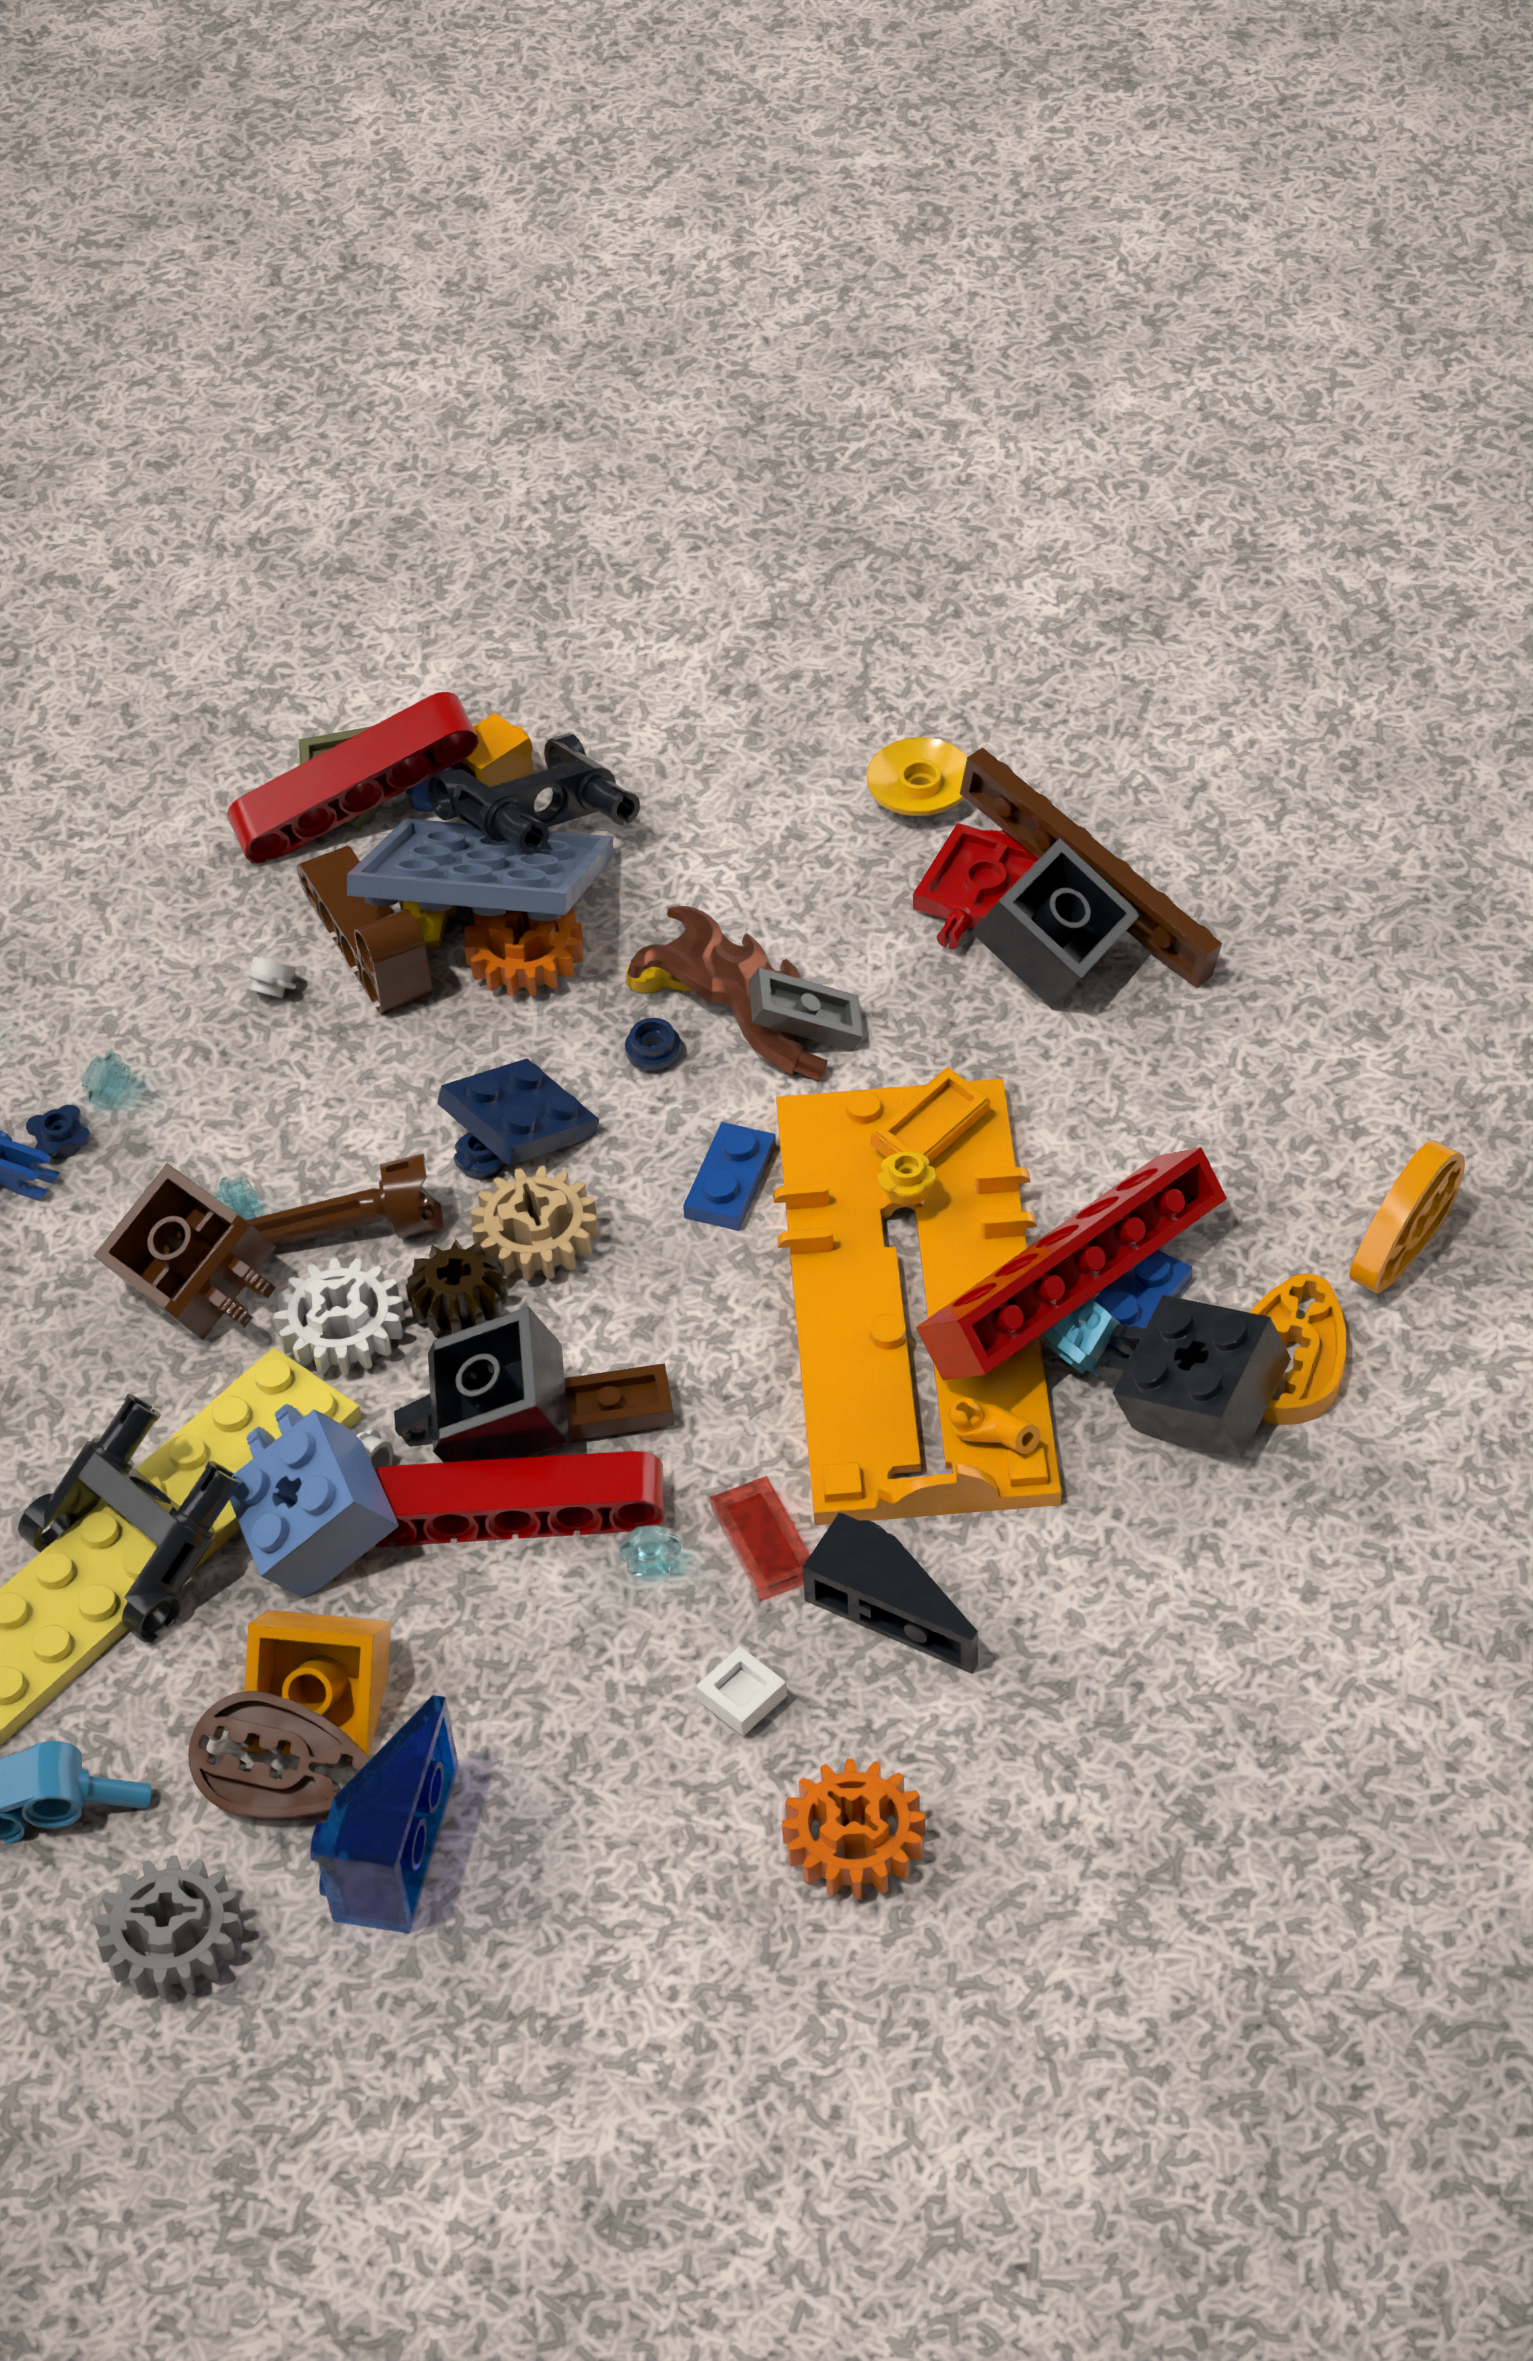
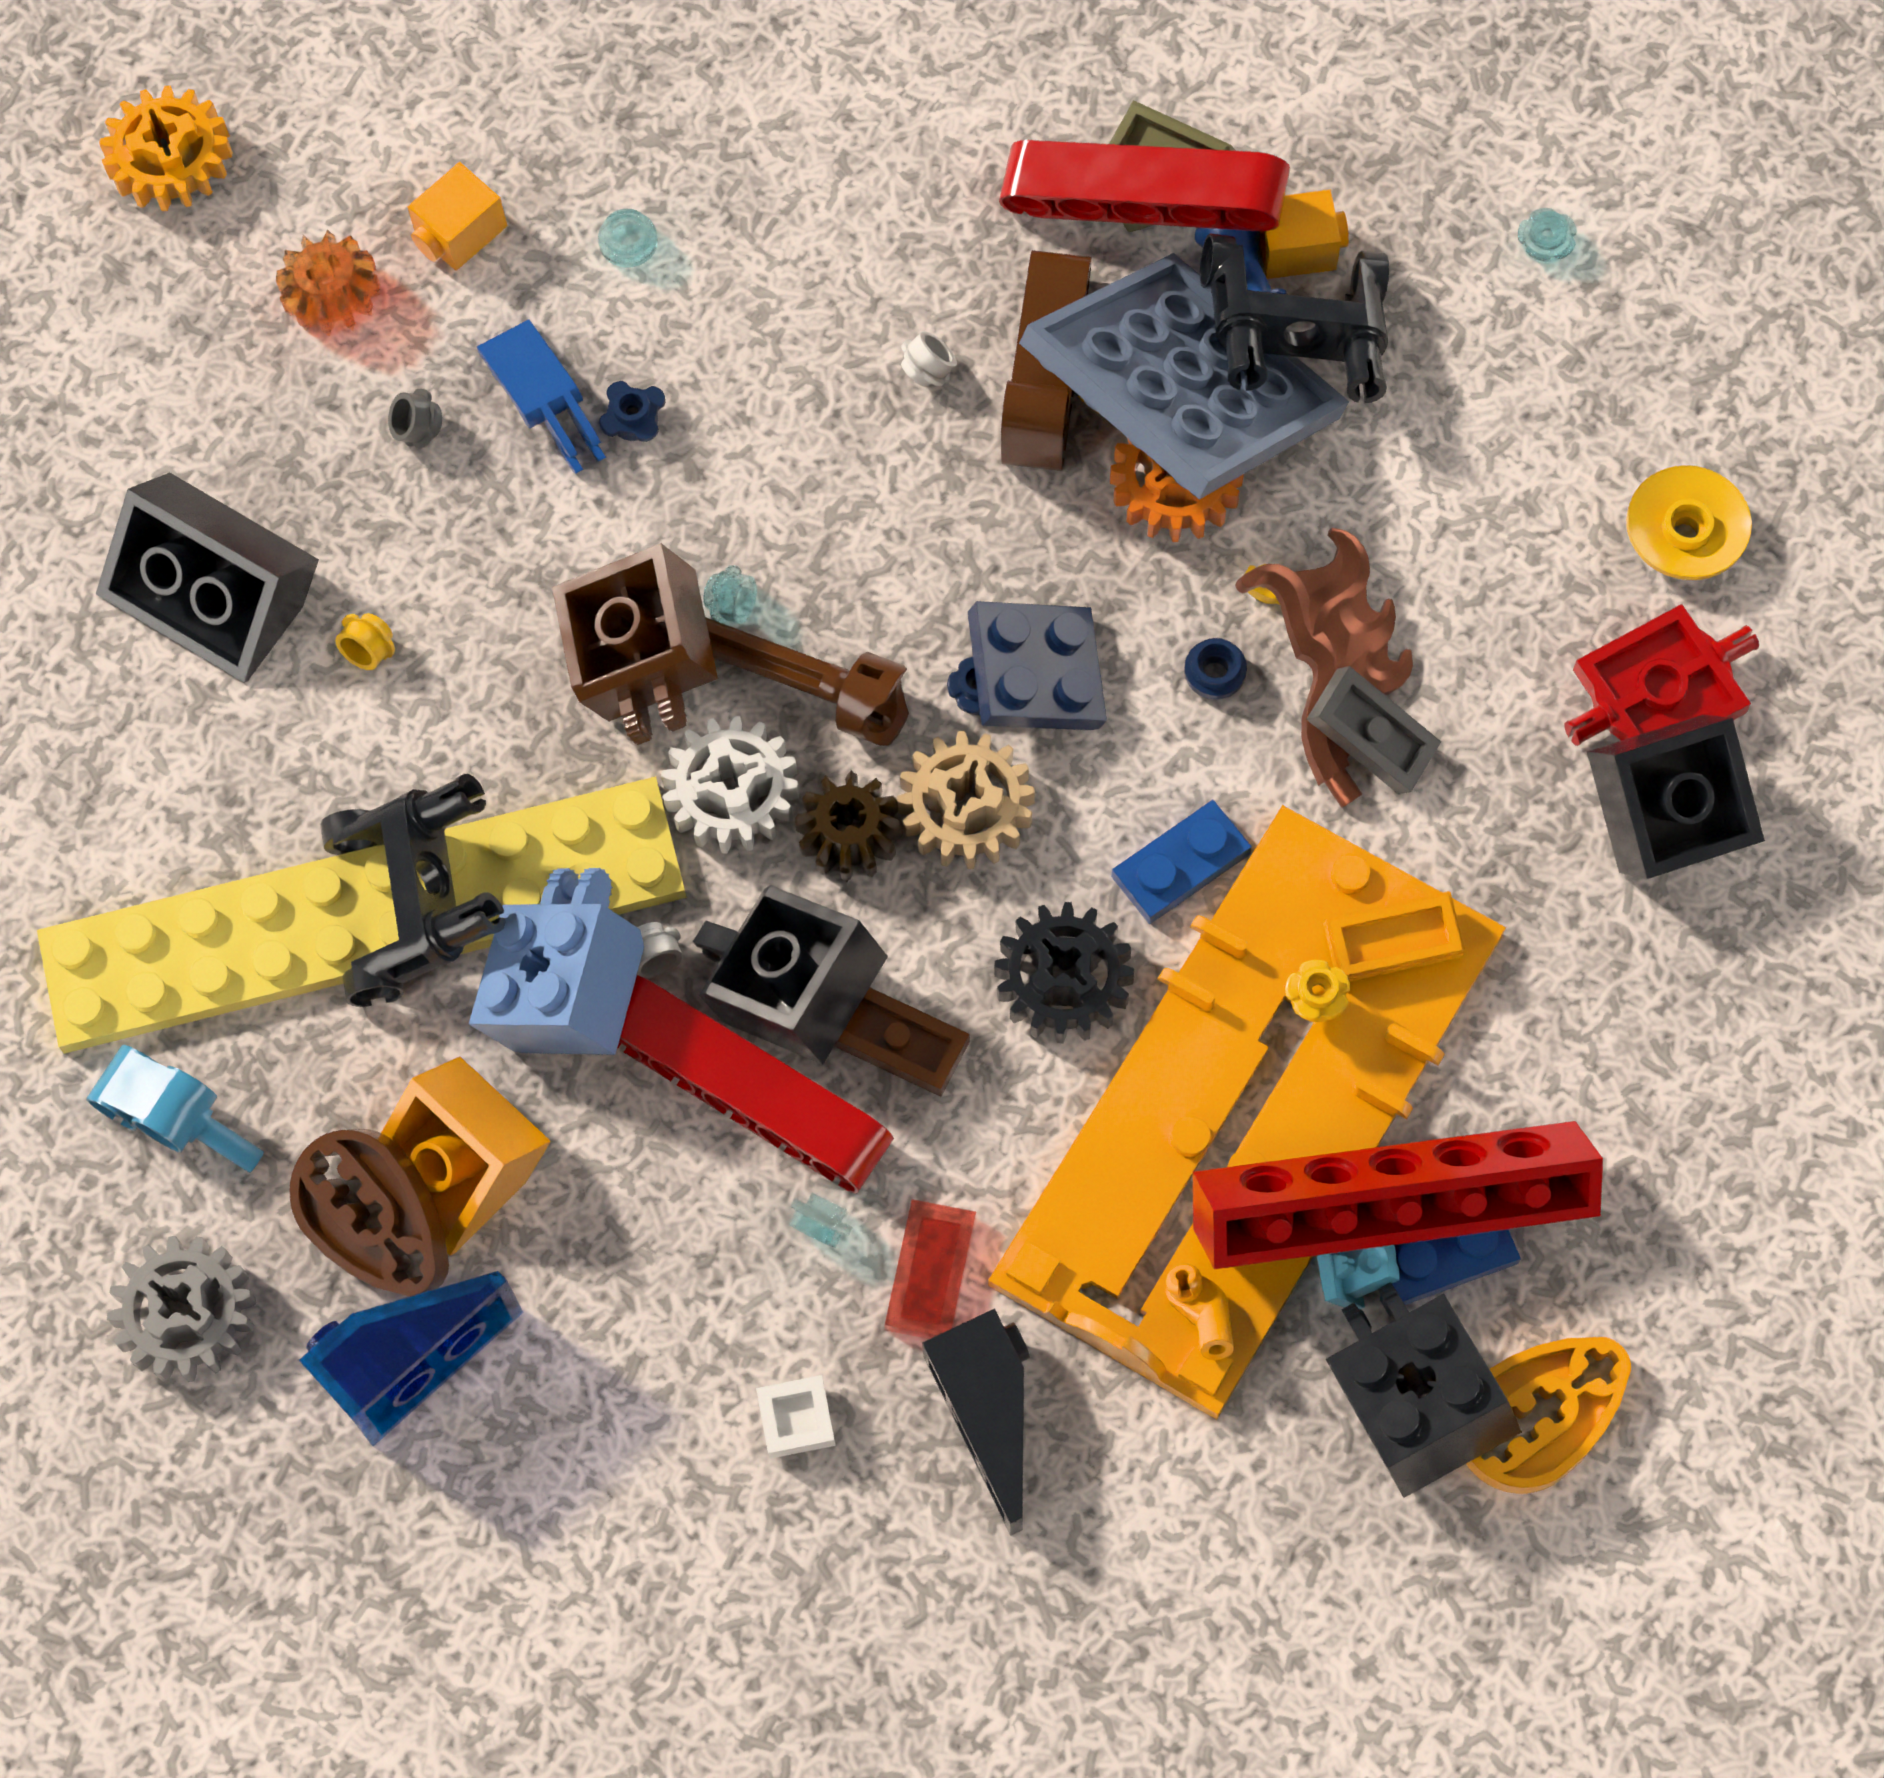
camera: 35 degrees right, 20 degrees up
(106, 1079) = (708, 382): clear light blue plate -> none
(671, 673) = (1544, 248): none -> clear light blue plate
(703, 1286) = (1048, 949): none -> black gear
(853, 1828) = (755, 1631): orange gear -> none
(1038, 824) = (1759, 720): reddish brown plate -> none
(1408, 1216) = (1753, 1357): light orange piece -> none

